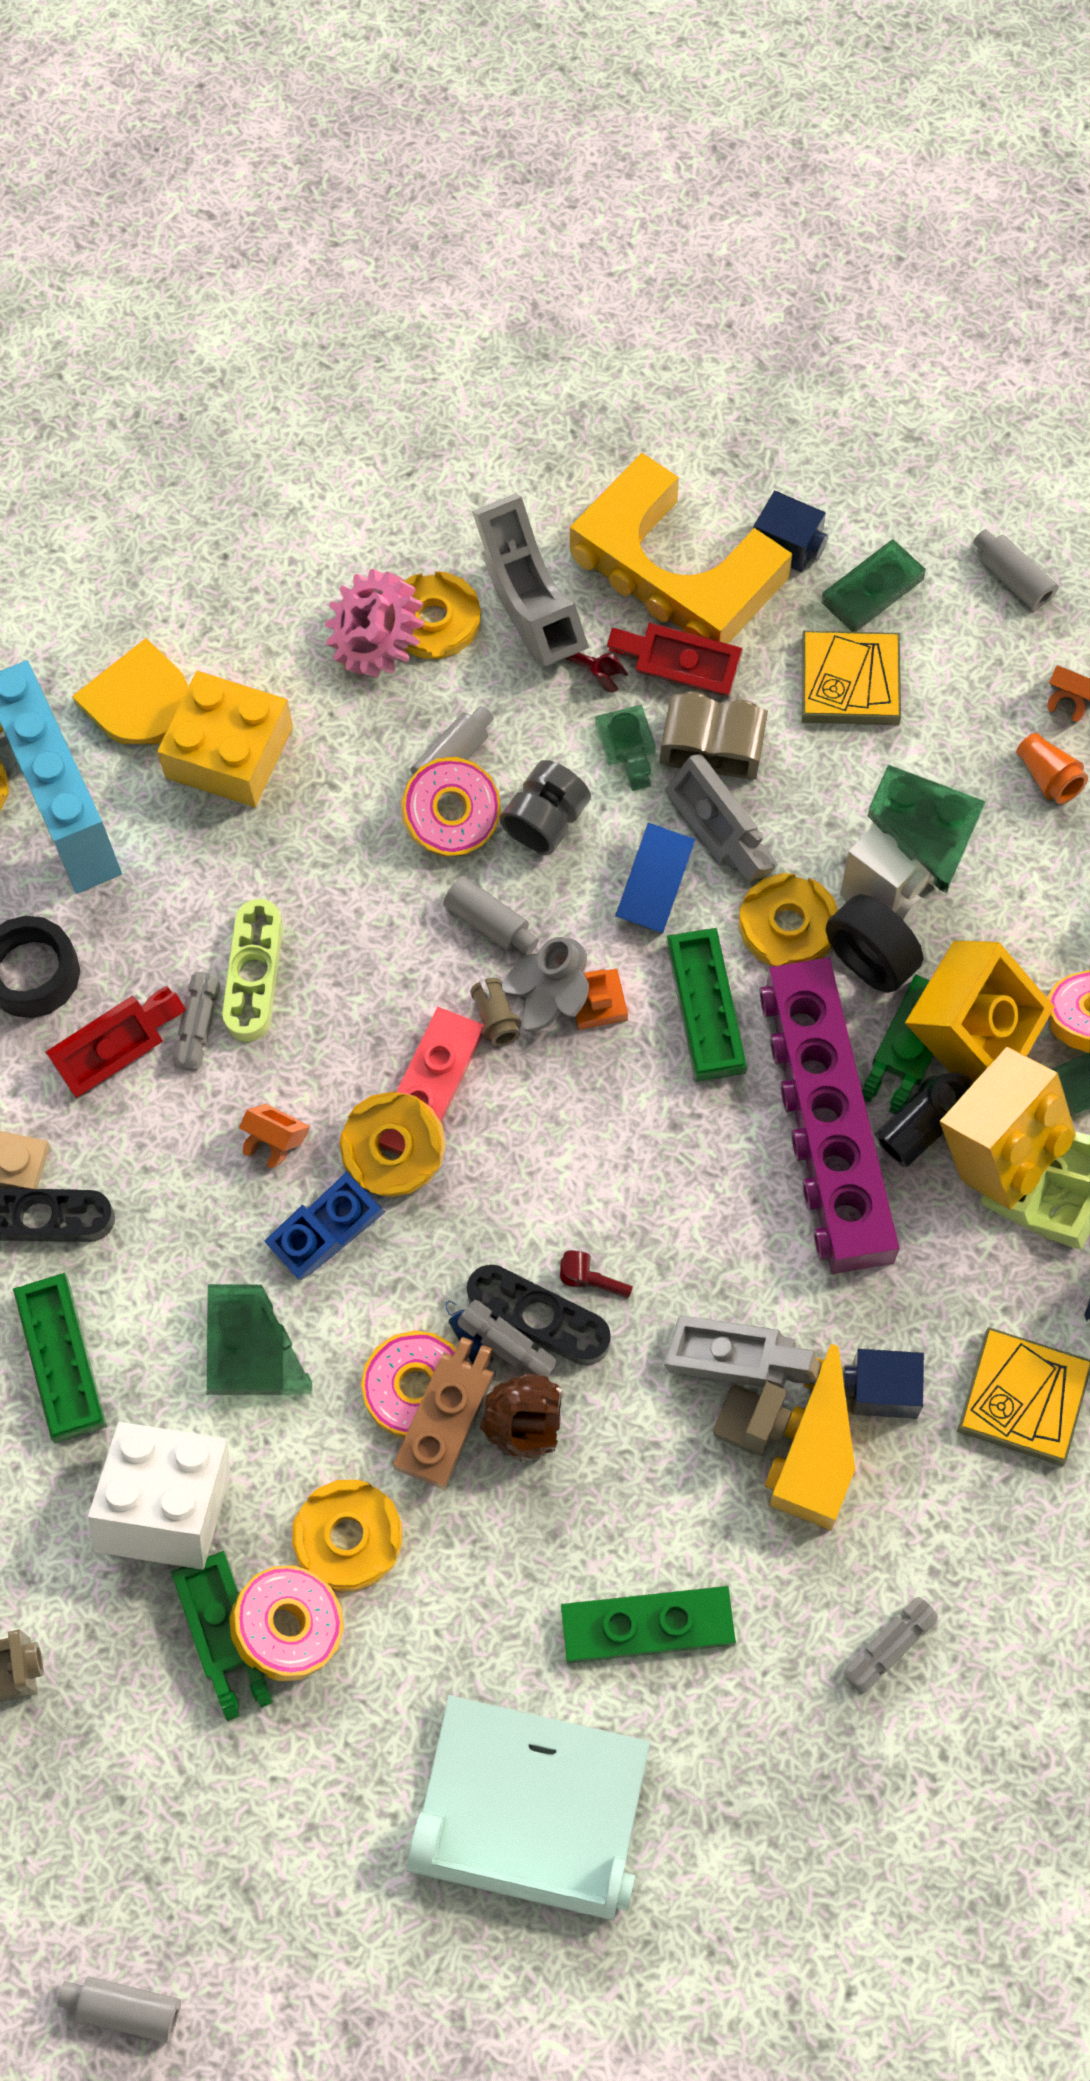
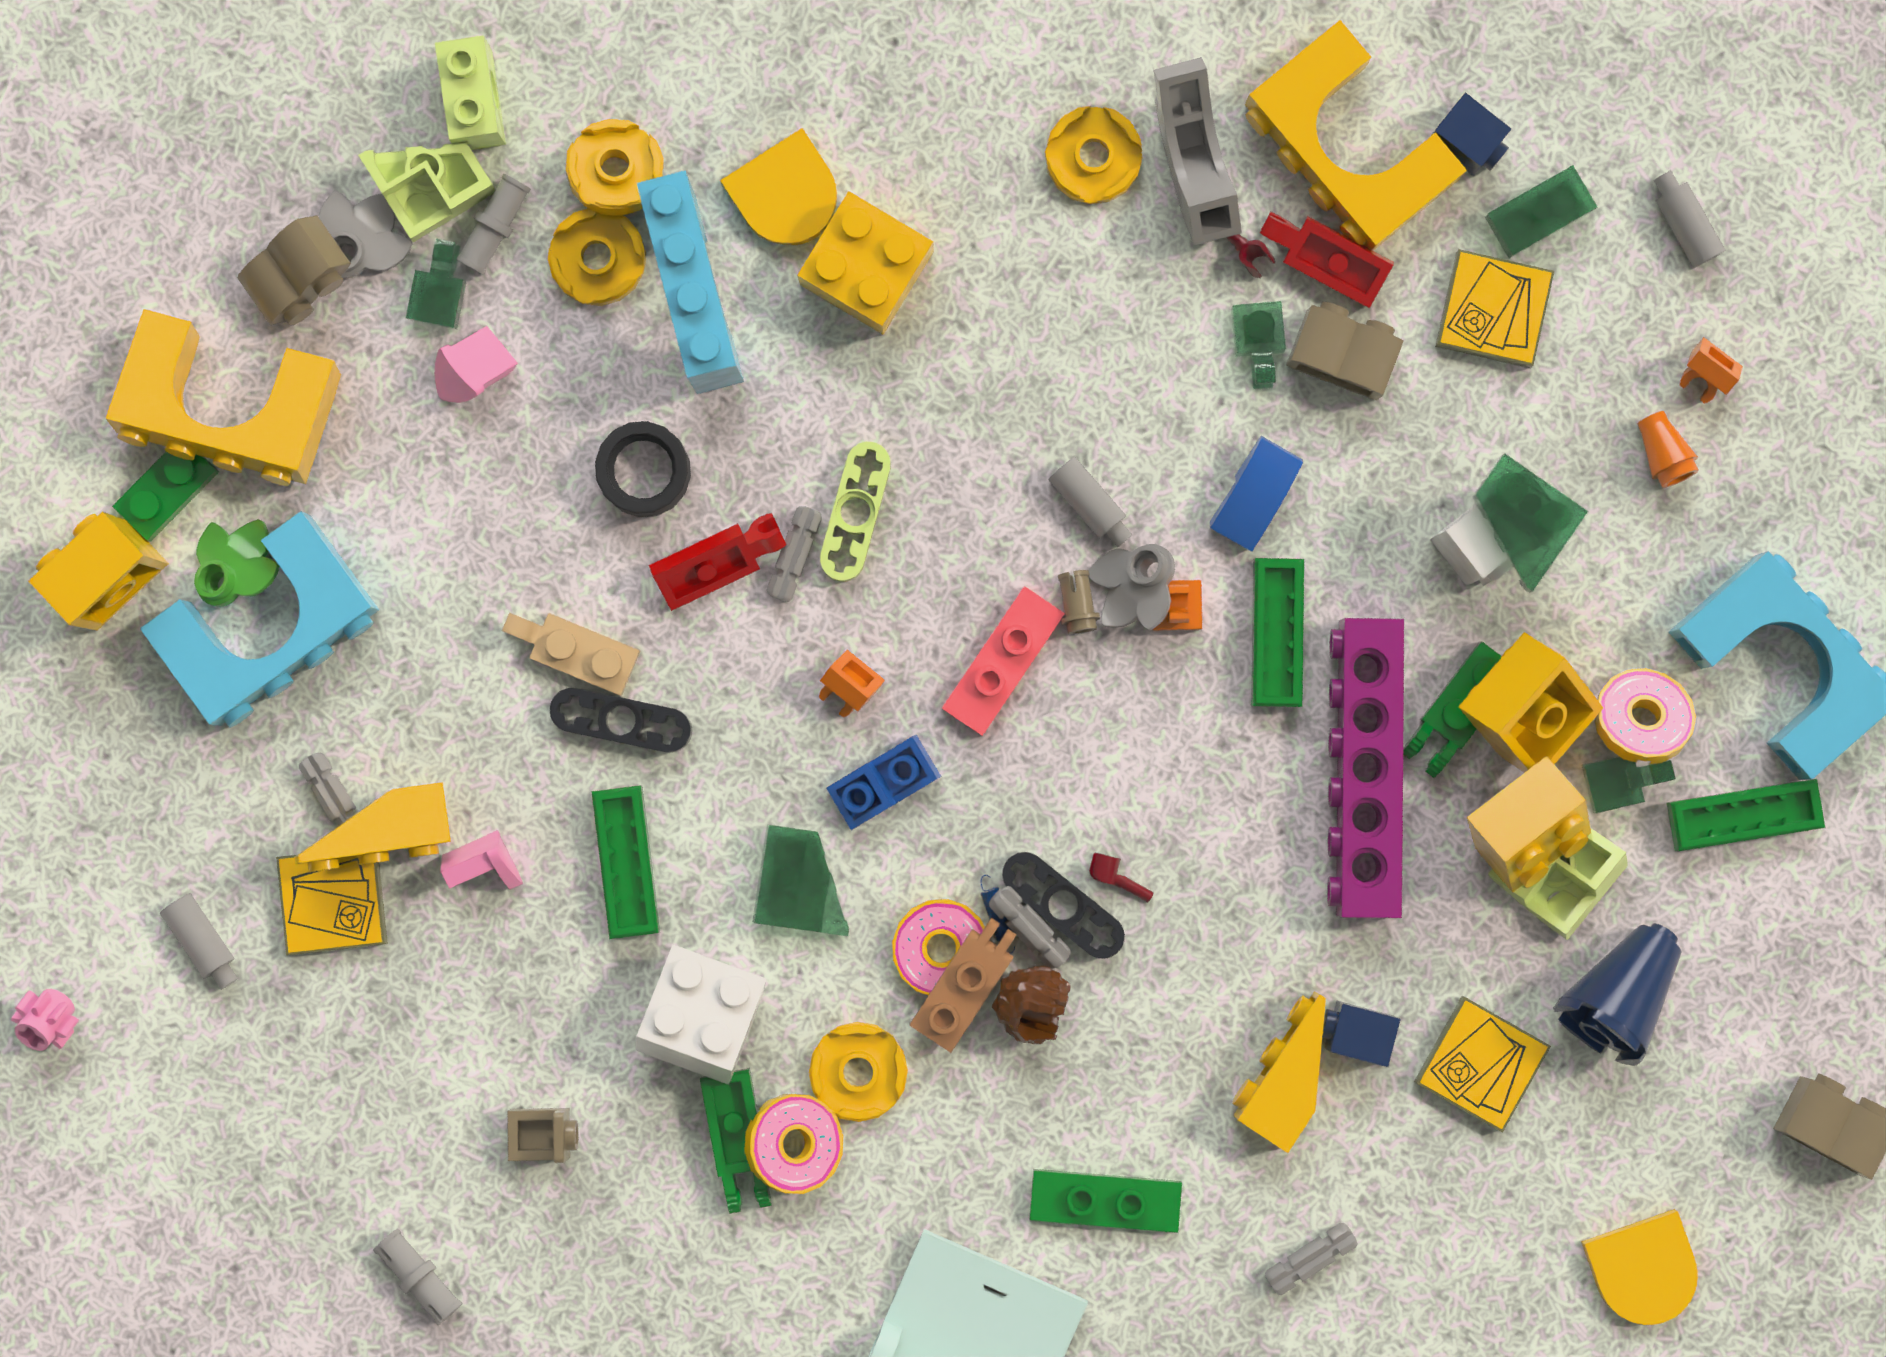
camera: 10 degrees right, 20 degrees up
(374, 619) = (1030, 162): bright pink gear -> none
(422, 1137) = (978, 700): yellow tile -> none
(460, 739) = (1086, 313): light grey cylinder -> none
(475, 791) = (1078, 408): tile -> none
(548, 803) = (1154, 413): dark grey wheel -> none
(719, 819) = (1331, 444): light grey hinge -> none
(738, 1354) = (1234, 982): light grey hinge -> none
(752, 1418) = (1235, 1041): dark tan bracket -> none
(783, 893) = (1345, 563): yellow tile -> none
(874, 943) = (1450, 611): black tyre -> none
(918, 1121) = (1453, 790): black piece -> none

